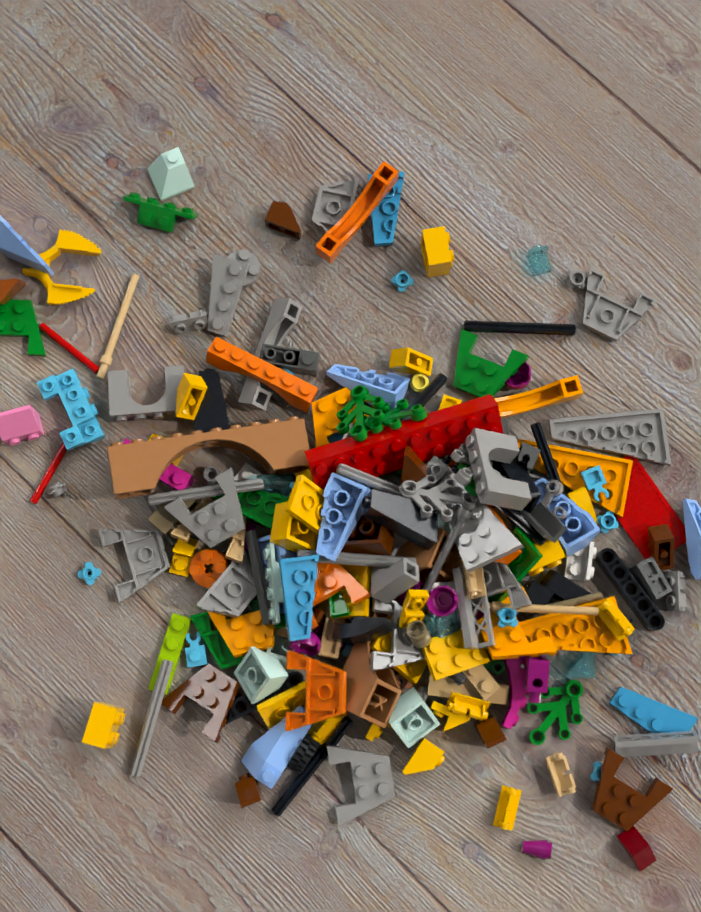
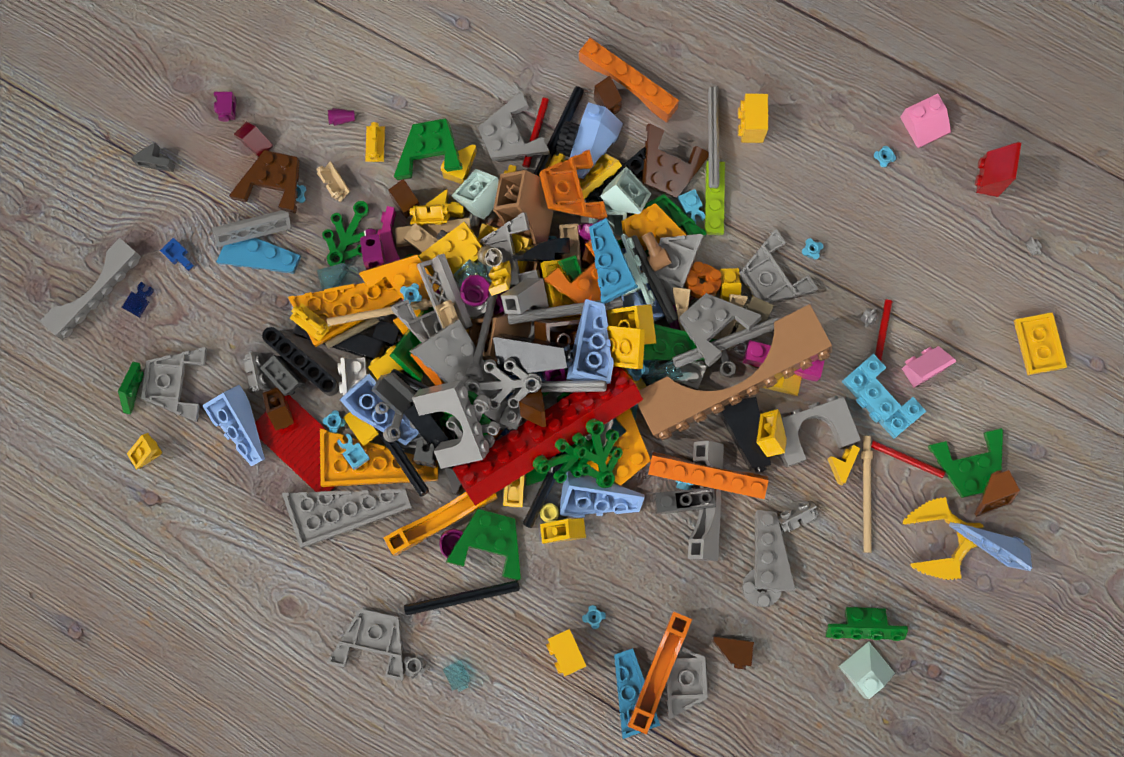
camera: 165 degrees right, 0 degrees up
(131, 352) = (842, 468): none -> yellow slope
(219, 806) = (652, 95): none -> orange arch
(248, 596) = (658, 257): none -> medium nougat pin
(331, 781) = (537, 127): none -> red bar
(451, 793) = (427, 141): none -> green wing
(660, 894) = (225, 106): none -> magenta brick

